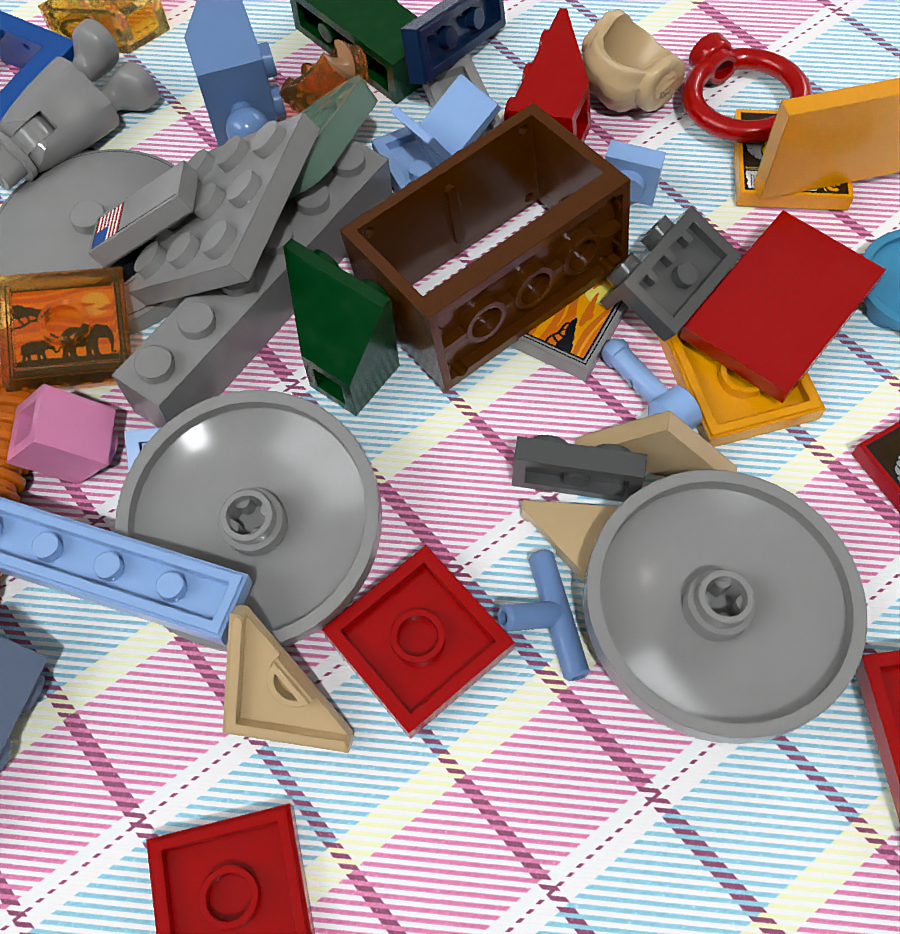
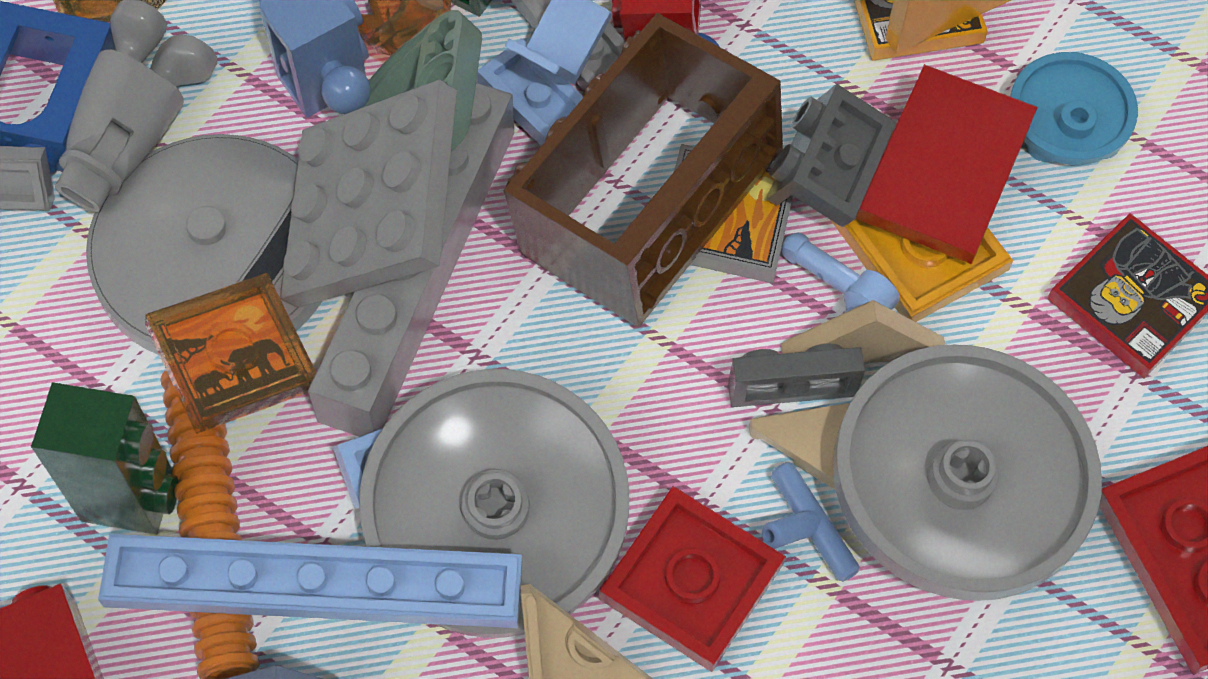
camera: 20 degrees left, 0 degrees up
(62, 435) = (269, 464): bright pink brick -> none
(144, 214) = (283, 213): light grey tile -> none
(341, 328) = (518, 287): dark green slope -> none
(641, 166) = (764, 47): light blue plate -> none

